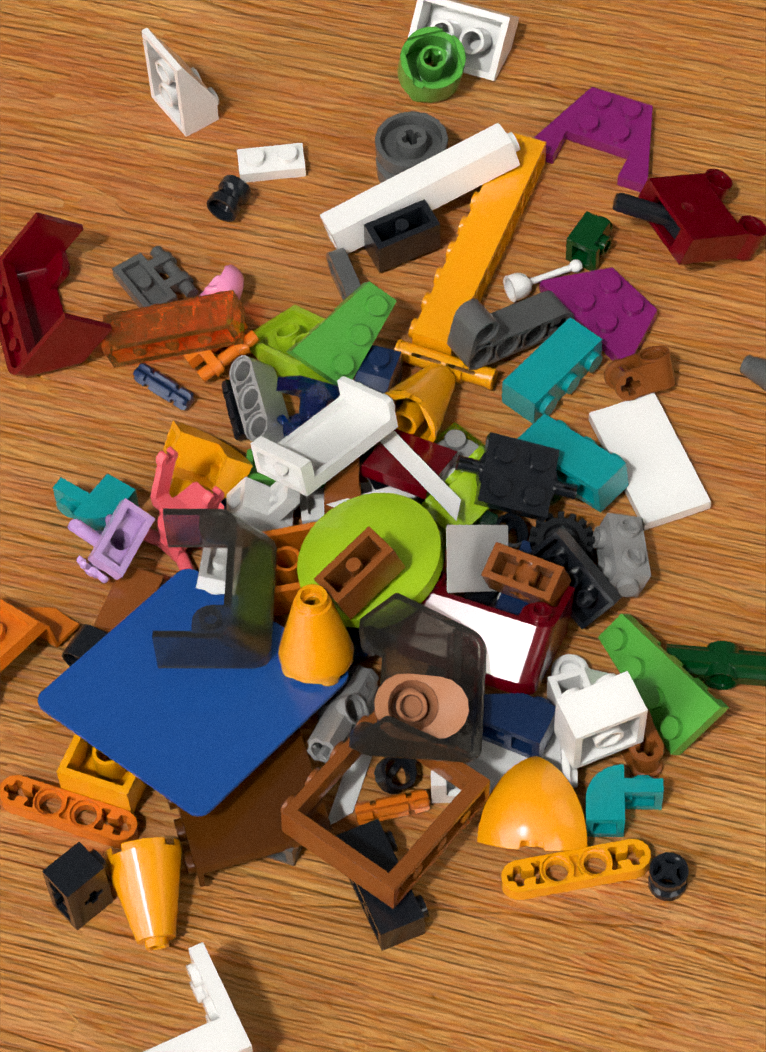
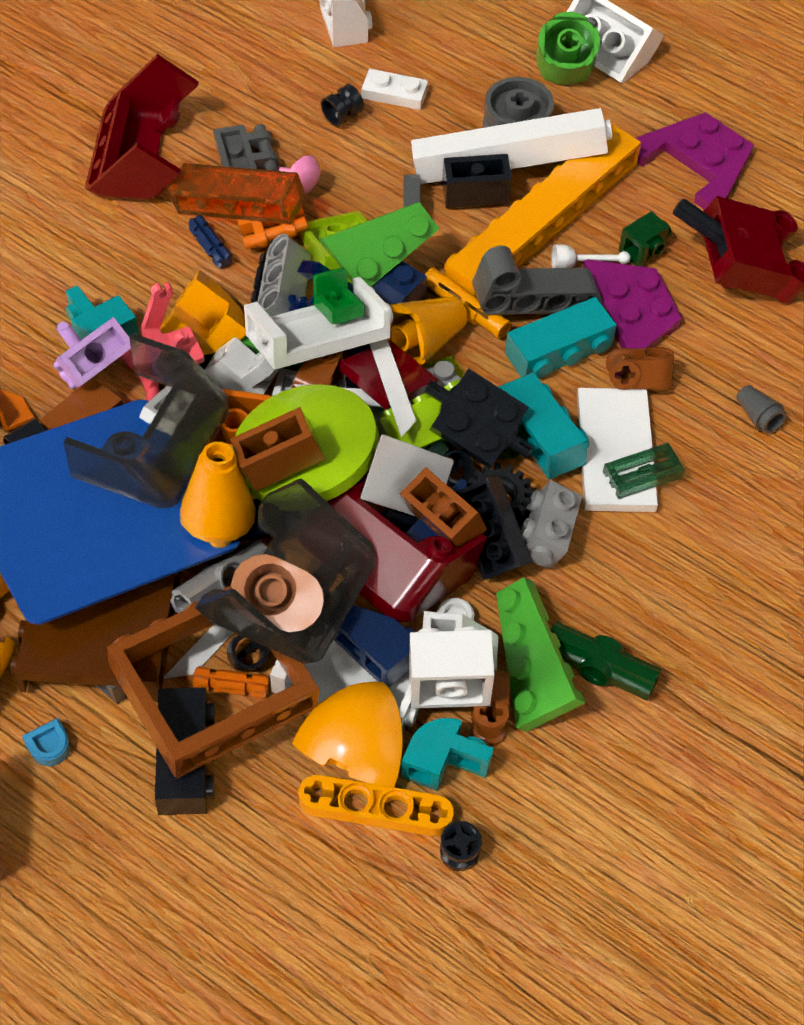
camera: 15 degrees right, 0 degrees up
(249, 924) = (48, 743): none -> dark azure tile
(329, 406) = (335, 298): none -> green bracket
(656, 481) = (647, 475): none -> clear green tile

